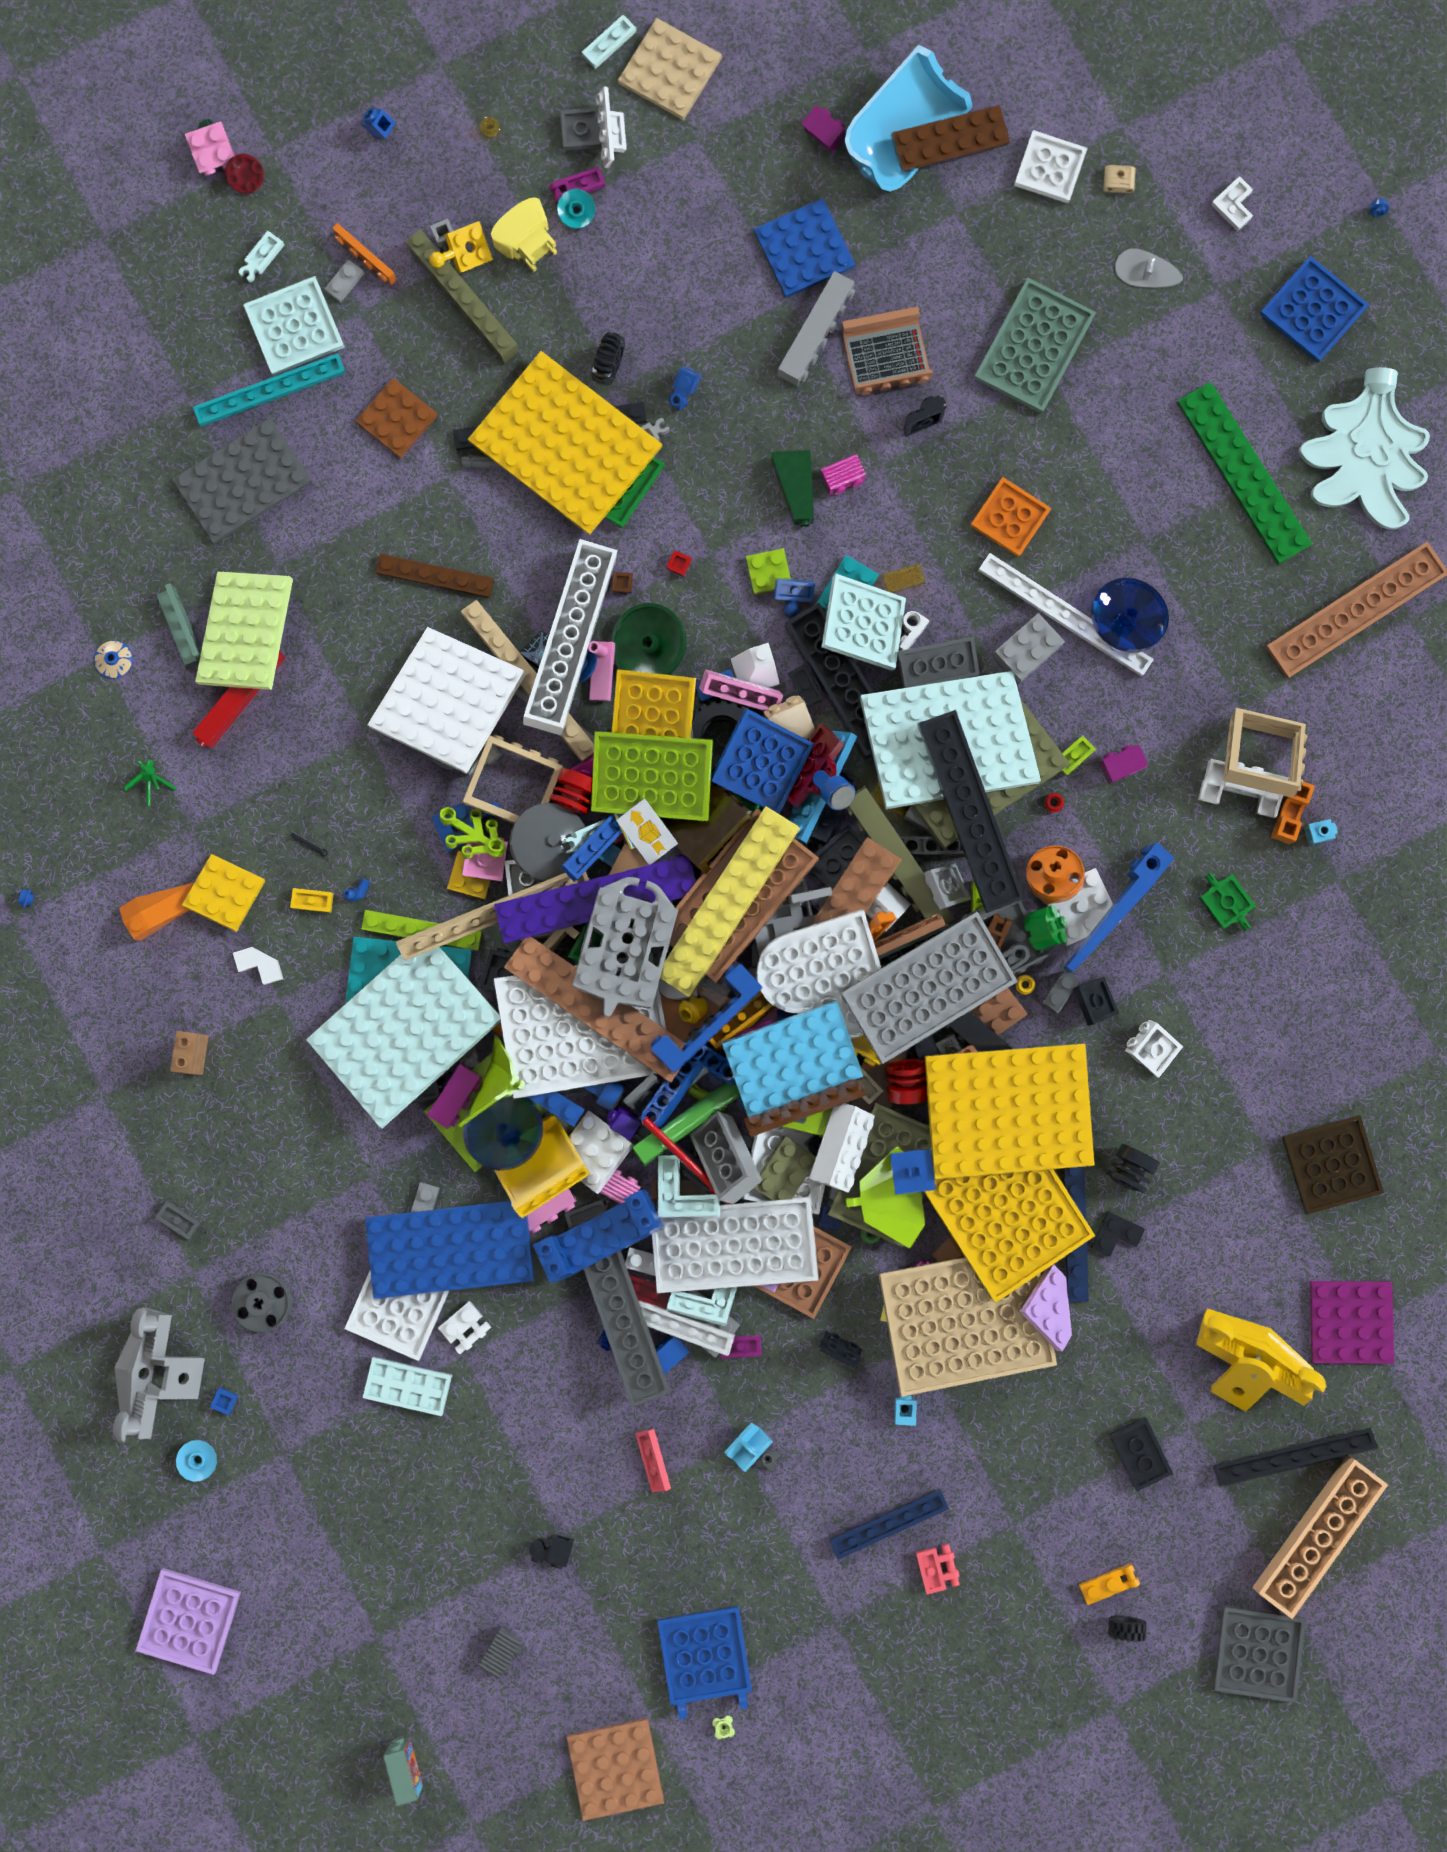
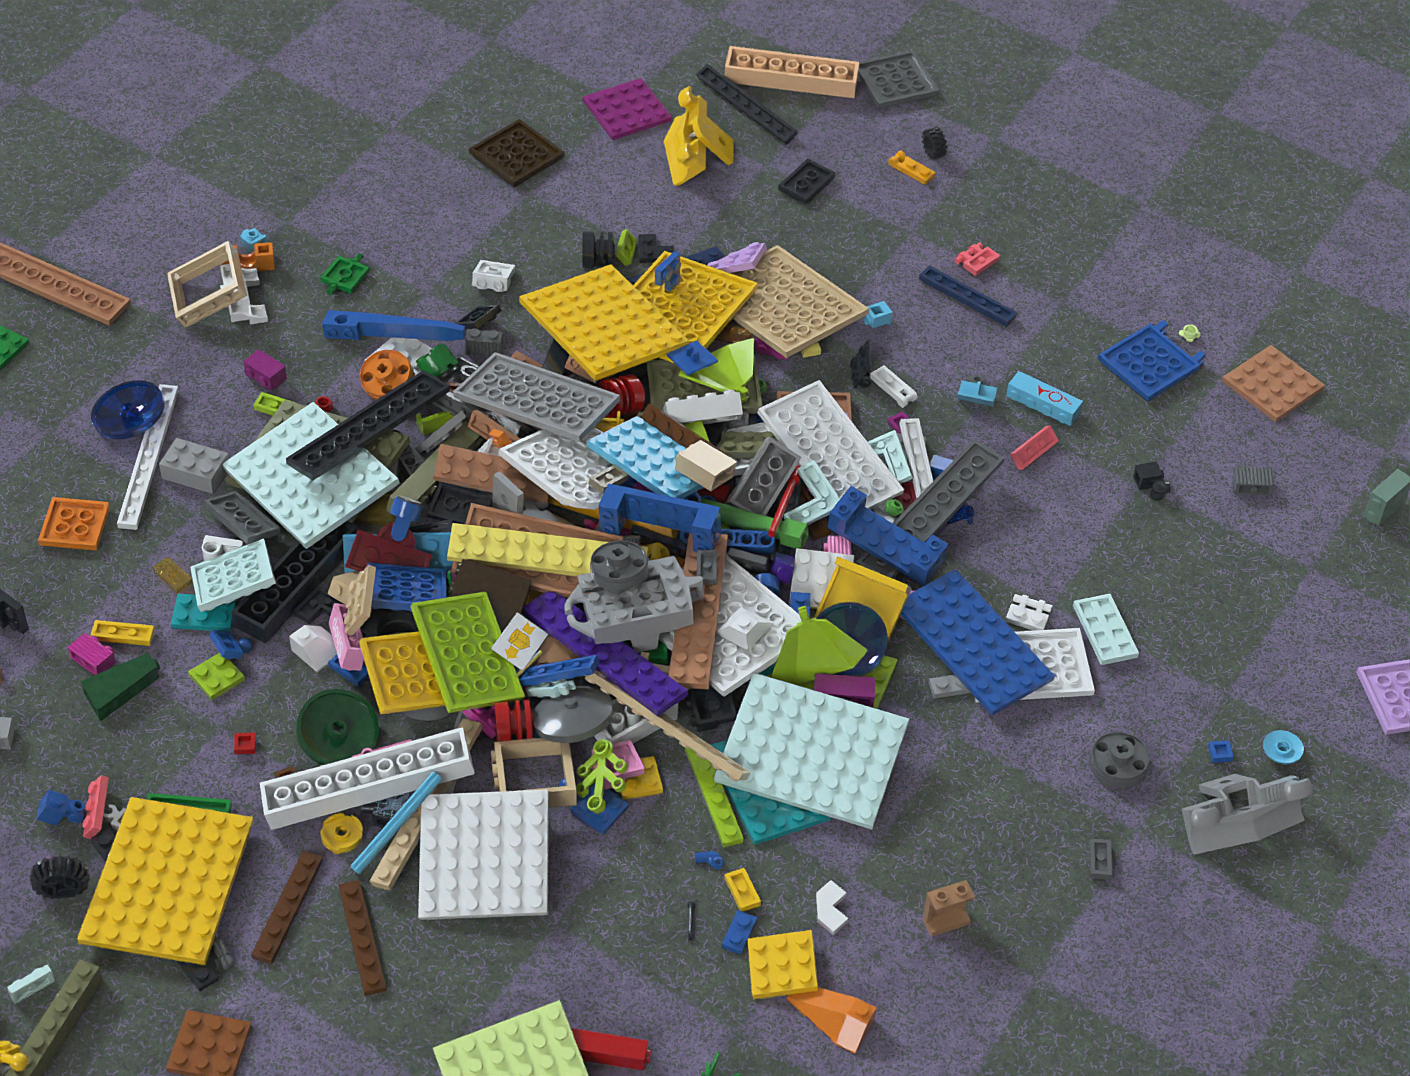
camera: 120 degrees left, 35 degrees down
(276, 877) = (739, 932): none -> blue plate
(495, 530) = (287, 907): none -> reddish brown plate
(515, 642) = (396, 822): none -> medium azure axle
(523, 298) = (30, 984): none -> light aqua plate
(535, 595) = (344, 843): none -> yellow plate
(553, 1036) = (744, 628): none -> white slope
(632, 1035) = (707, 566): none -> dark grey plate
(643, 1267) = (894, 508): none -> bright green plate
(656, 955) = (619, 566): none -> dark grey piece
(673, 416) = (95, 807): none -> coral plate
(709, 1512) = (1044, 398): none -> medium azure brick
(750, 703) = (360, 600): none -> tan plate
(751, 1097) = (705, 465): none -> tan brick
(781, 998) = (611, 475): none -> dark tan plate
(804, 1370) = (893, 386): none -> white plate
(856, 510) = (123, 632): none -> yellow plate
(1038, 1211) = (669, 272): none -> blue plate
(1129, 1205) = (626, 247): none -> lime plate

